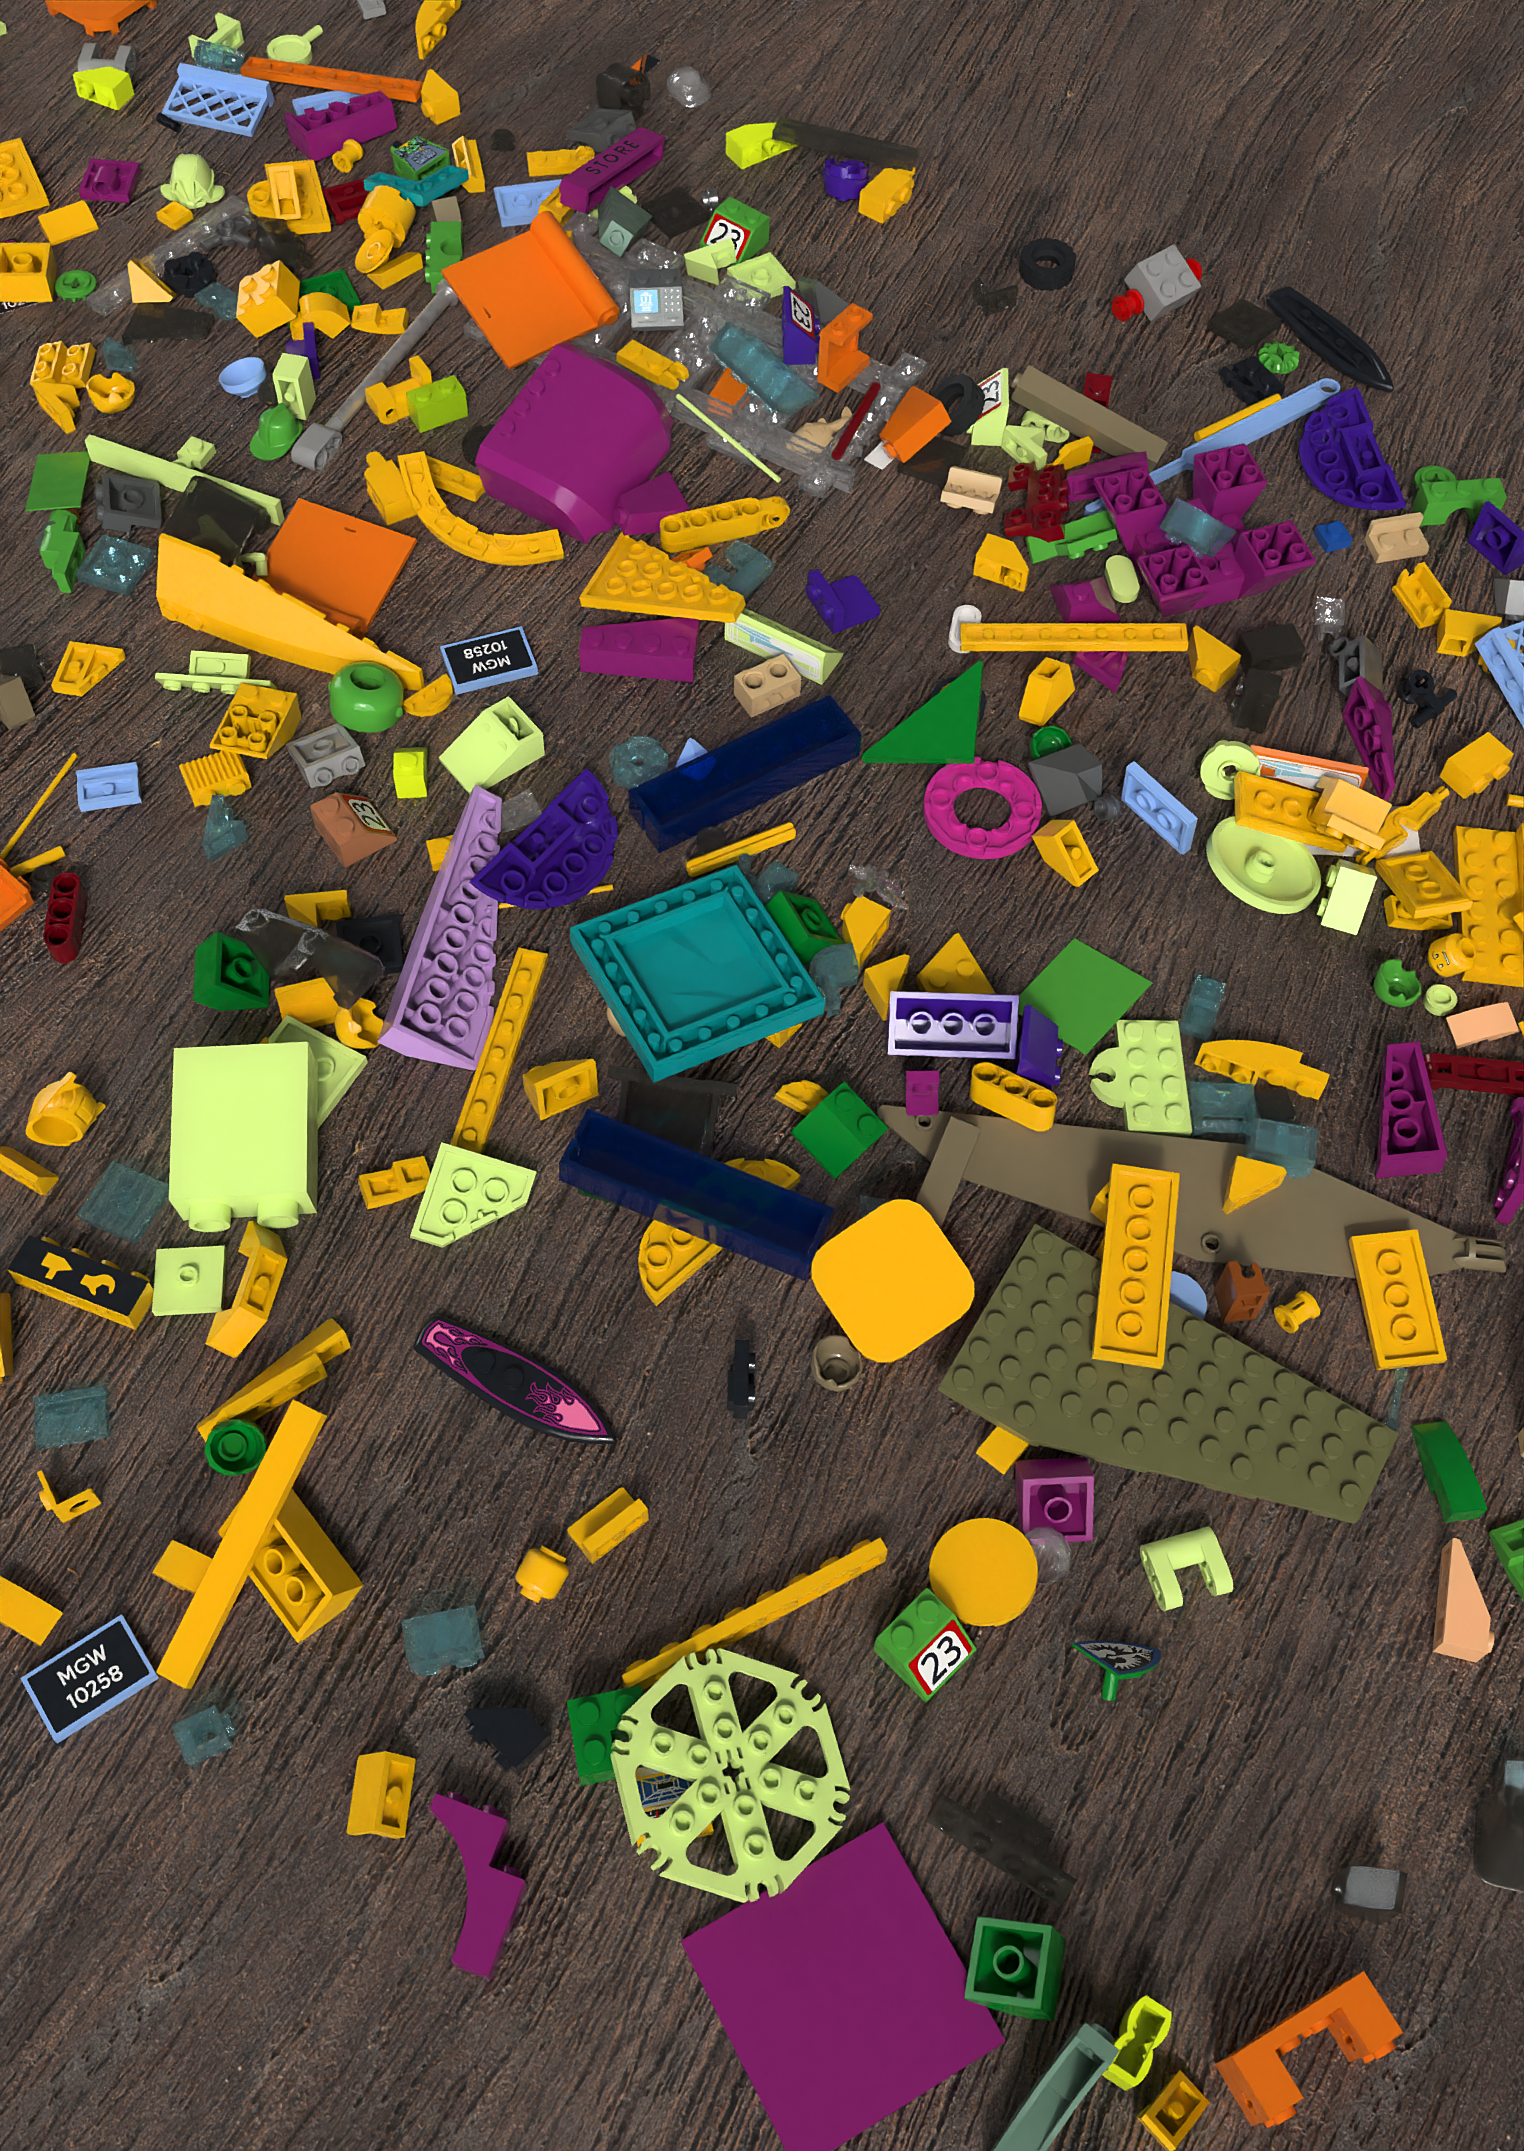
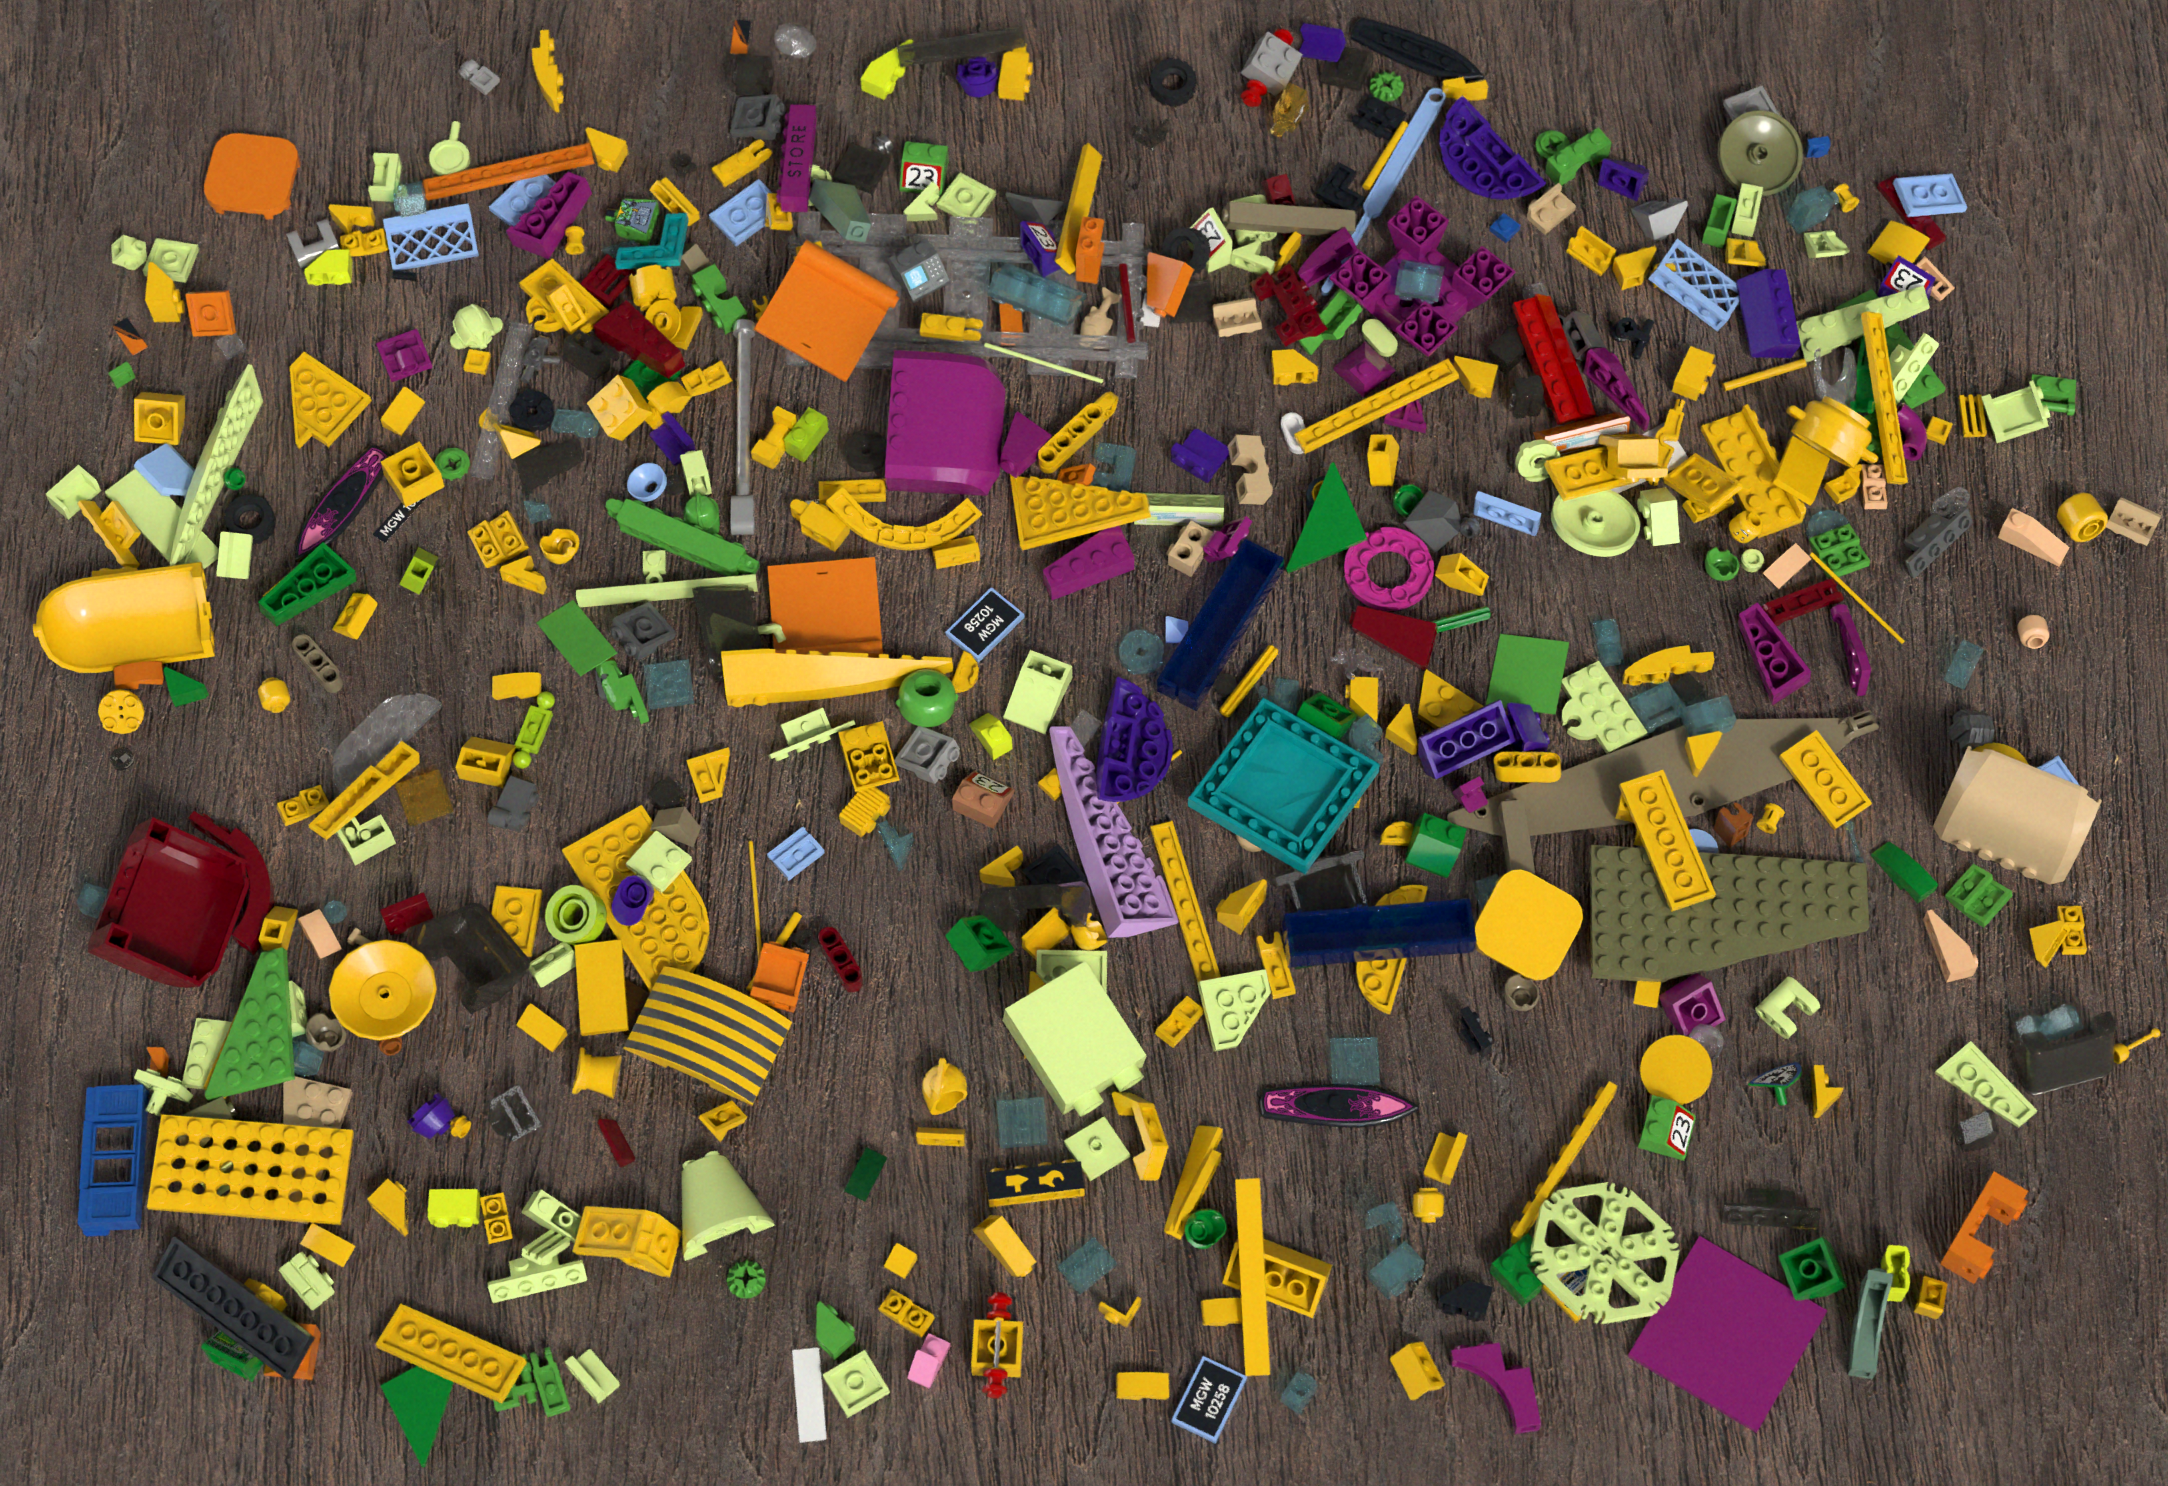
camera: 25 degrees left, 5 degrees up
(151, 83) = (365, 244): none -> yellow slope
(159, 56) = (348, 216): none -> yellow slope
(237, 440) = (681, 539): none -> bright green hinge
(335, 250) = (634, 335): none -> dark red wedge
(471, 1555) = (1387, 1215): none -> clear light blue panel
(509, 579) = (956, 552): none -> yellow panel
(547, 1191) = (1275, 963): none -> yellow plate
(574, 1340) = (1355, 1061): none -> clear light blue plate
(799, 691) = (1225, 542): none -> magenta plate
(881, 654) = (1249, 453): none -> tan arch
(882, 306) = (1078, 207): none -> yellow tile
(950, 880) = (1398, 634): none -> dark red slope
(1031, 899) = (1462, 619): none -> green axle
(1156, 329) = (1289, 109): none -> clear yellow torso
(1165, 423) = (1336, 191): none -> black plate
(1169, 1719) = (1822, 1095): none -> yellow slope
(1232, 288) = (1322, 42): none -> dark purple panel
(1310, 675) = (1552, 359): none -> red slope
(1374, 395) = (1472, 91): none -> yellow slope
(1417, 1823) = (1981, 1080): none -> yellowish green wing

